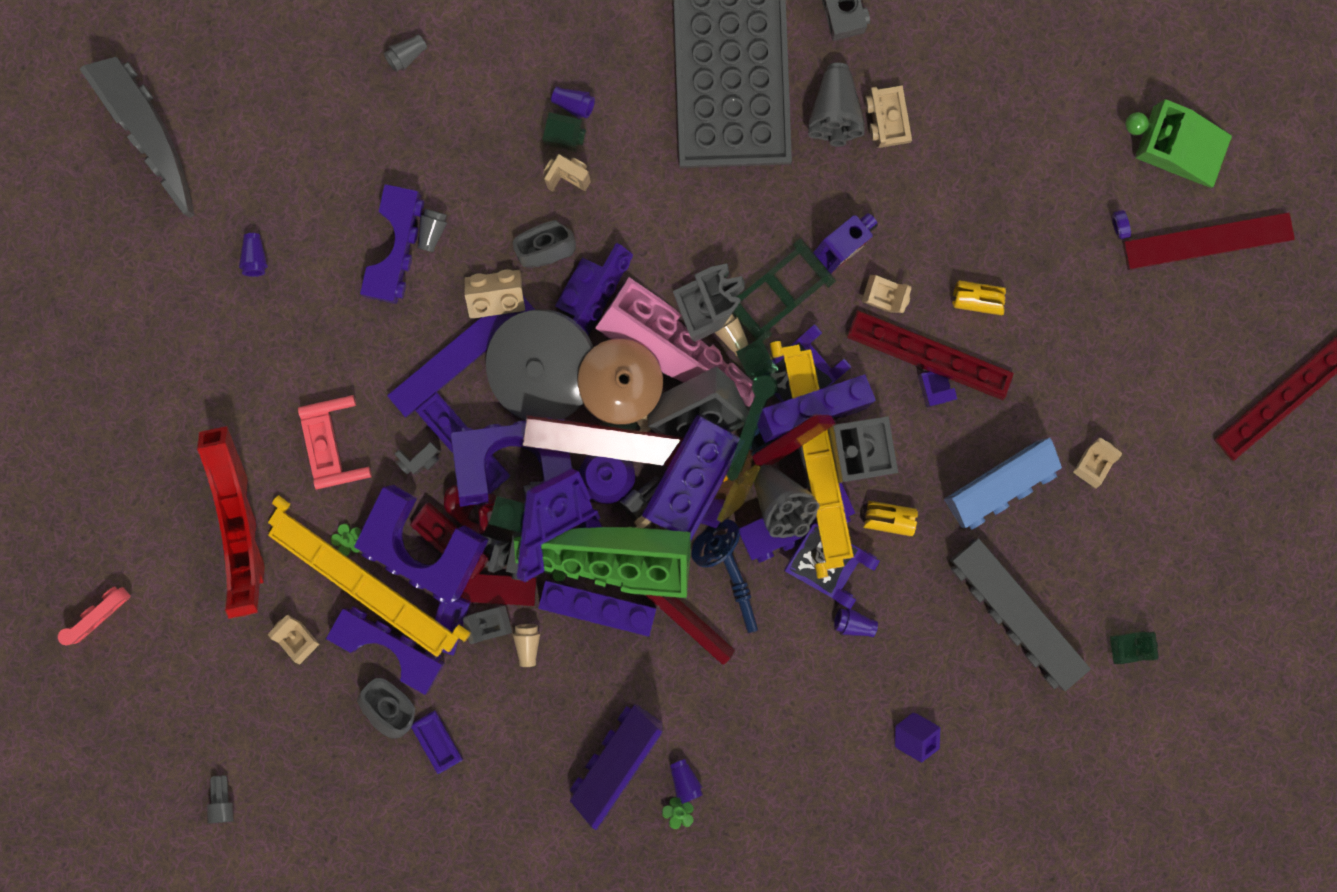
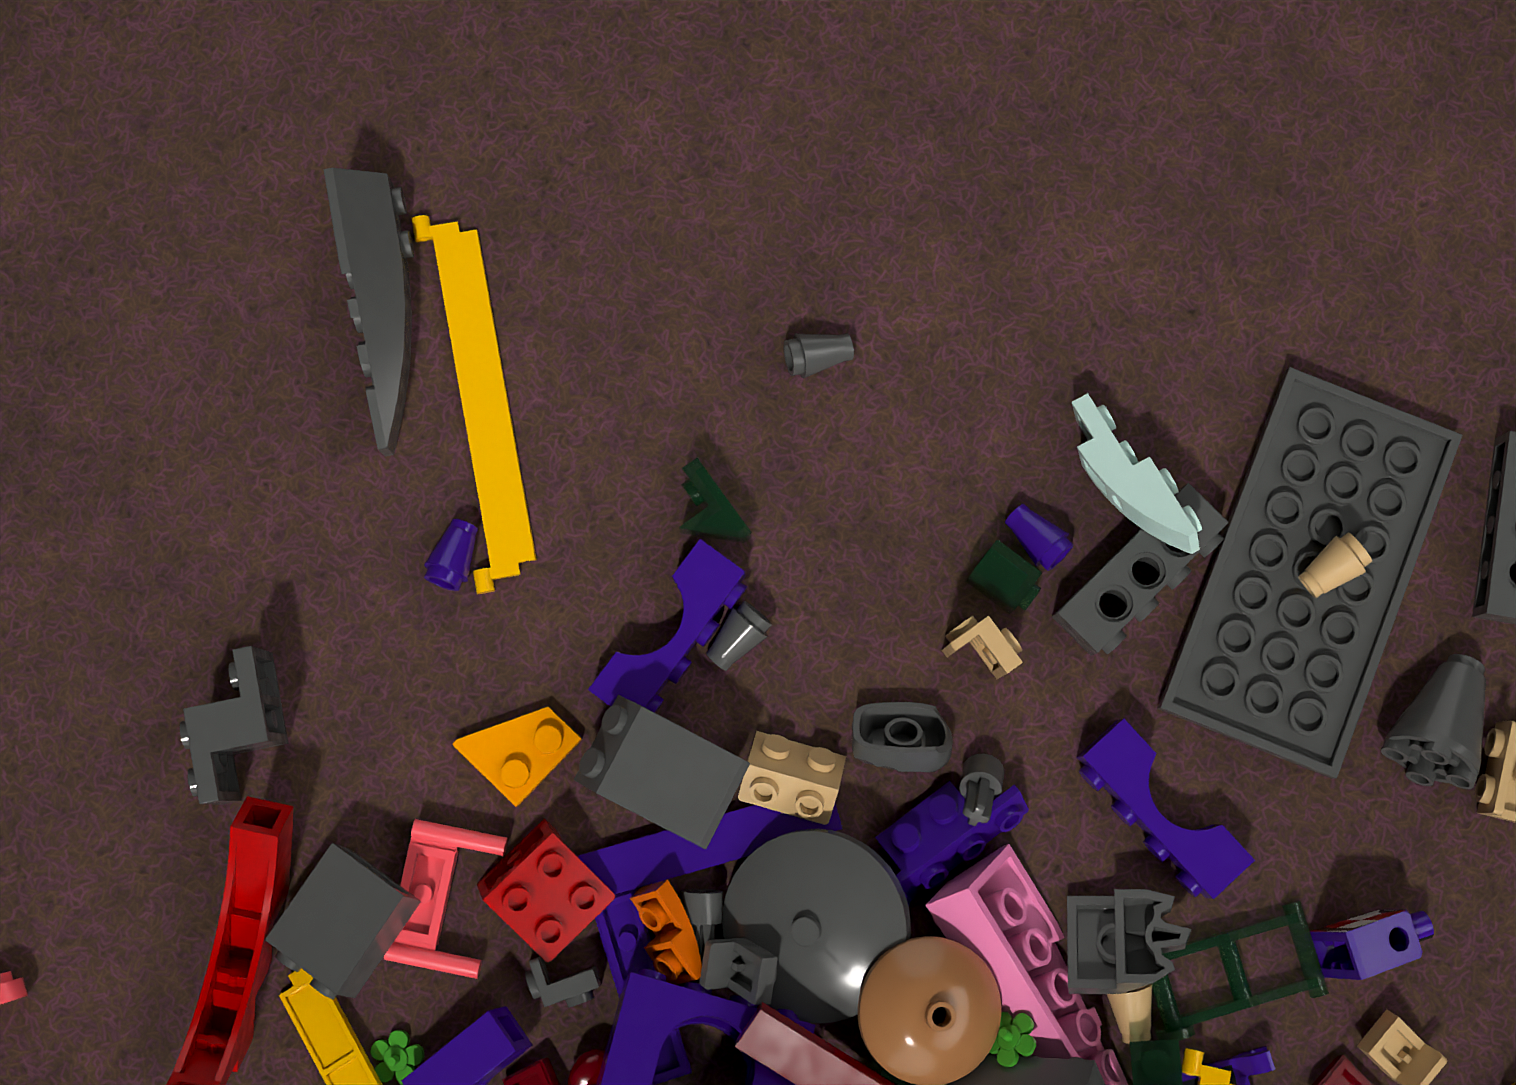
camera: 25 degrees right, 5 degrees down
(174, 399) = (233, 727): none -> dark grey bracket
(229, 161) = (483, 399): none -> yellow piece
(283, 478) = (341, 922): none -> dark grey brick
(339, 346) = (519, 751): none -> light orange wing
(387, 414) = (545, 891): none -> red bracket
(390, 169) = (719, 517): none -> clear green slope
(418, 319) = (661, 771): none -> dark grey slope
(470, 411) = (675, 944): none -> orange slope
(477, 387) = (703, 911): none -> dark grey piece
(508, 406) = (740, 967): none -> dark grey bracket
(598, 250) = (980, 785): none -> dark grey piece
(609, 48) = (1133, 487): none -> light aqua slope
(646, 53) = (1082, 614): none -> dark grey brick
(671, 208) = (1205, 856): none -> dark purple arch
(671, 377) = (1013, 1039): none -> bright green plant
(741, 44) = (1335, 565): none -> tan cone

